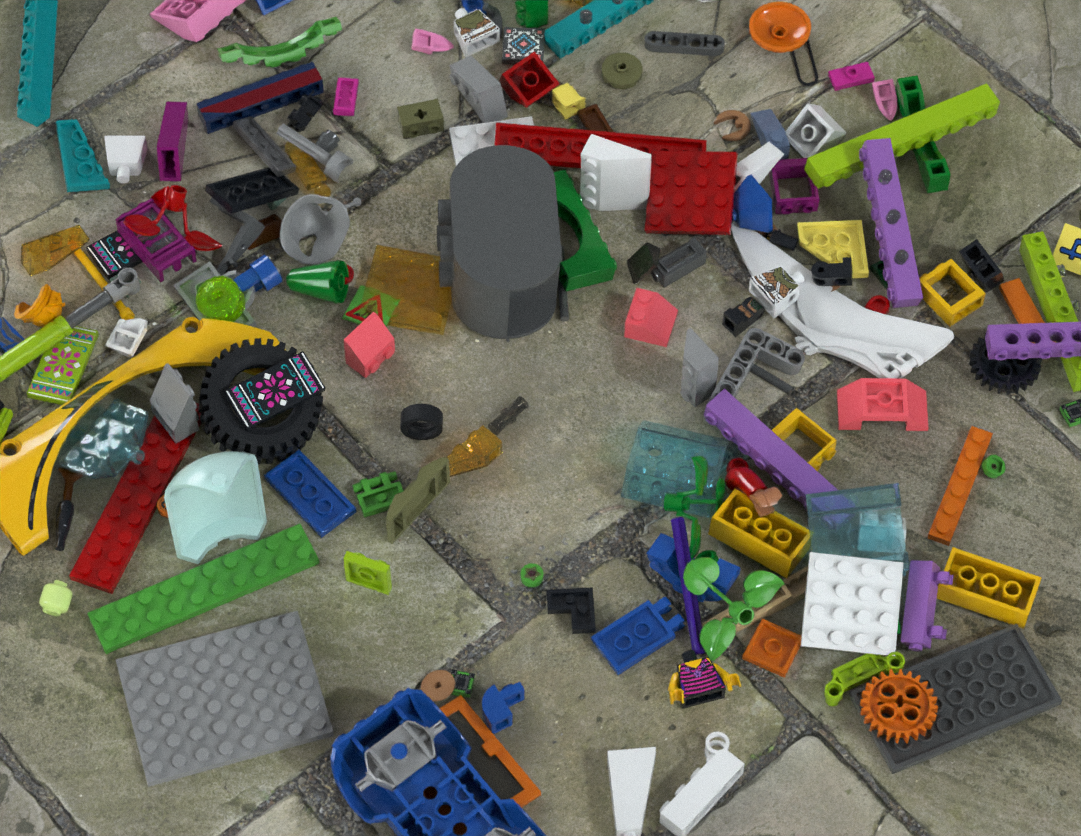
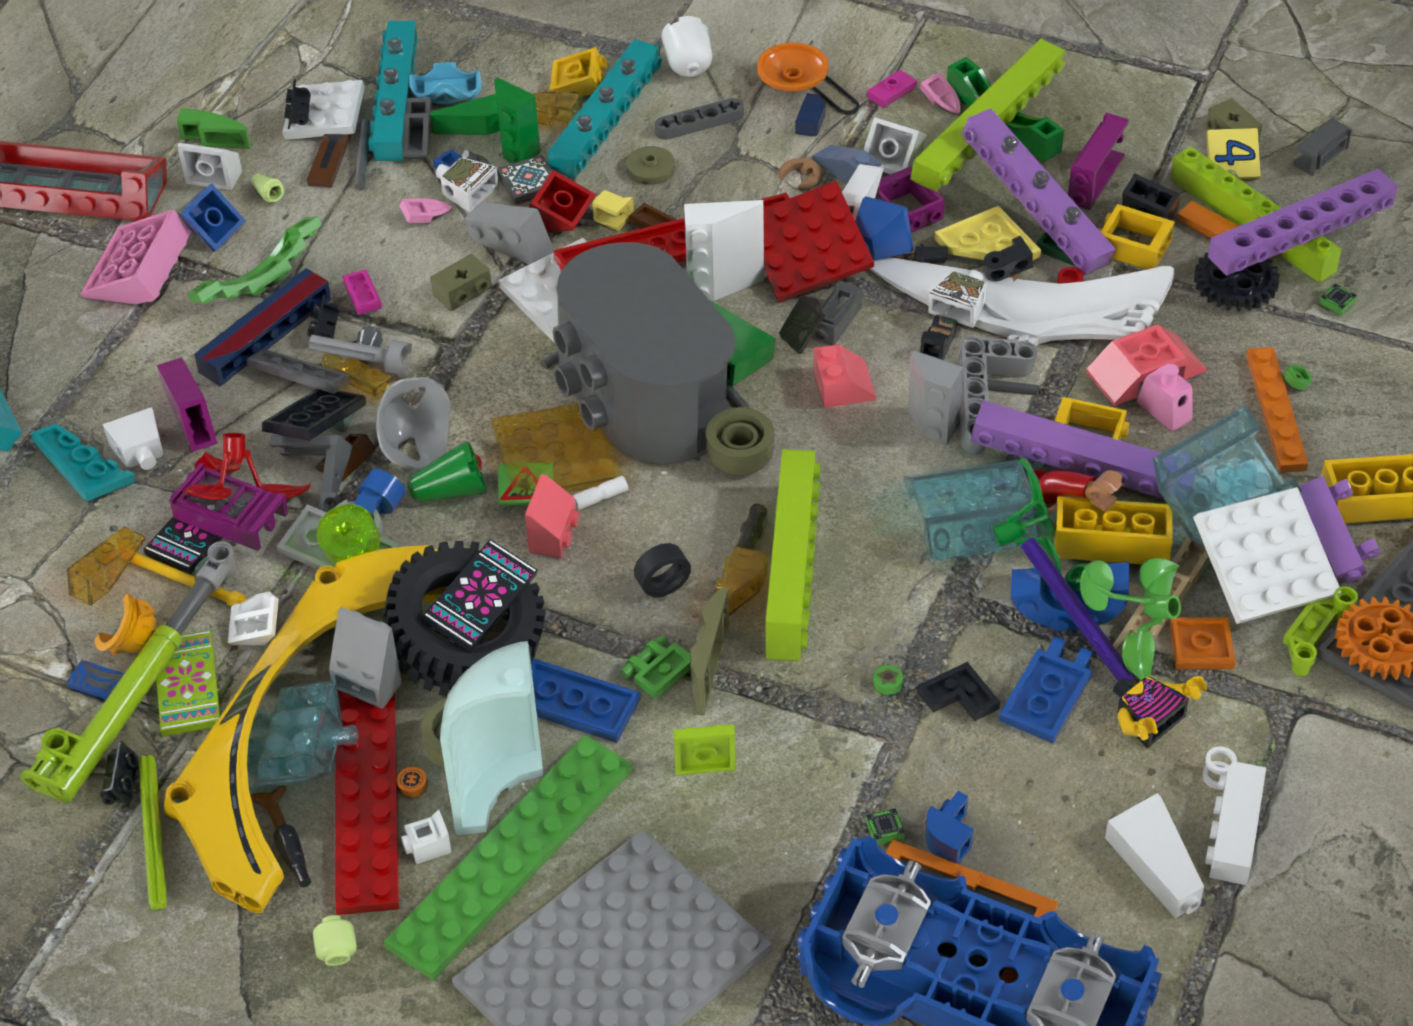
camera: 25 degrees left, 10 degrees down
(153, 552) = (427, 838): none -> white window
(416, 338) = (603, 491): none -> white piece
(438, 685) = (860, 829): medium nougat piece -> none
(518, 449) = (792, 555): none -> lime brick
(539, 328) = (735, 428): none -> olive piece
(770, 76) = (810, 115): none -> dark blue piece
(875, 435) = (1167, 397): none -> bright pink torso
(961, 214) = (1097, 161): none -> magenta door

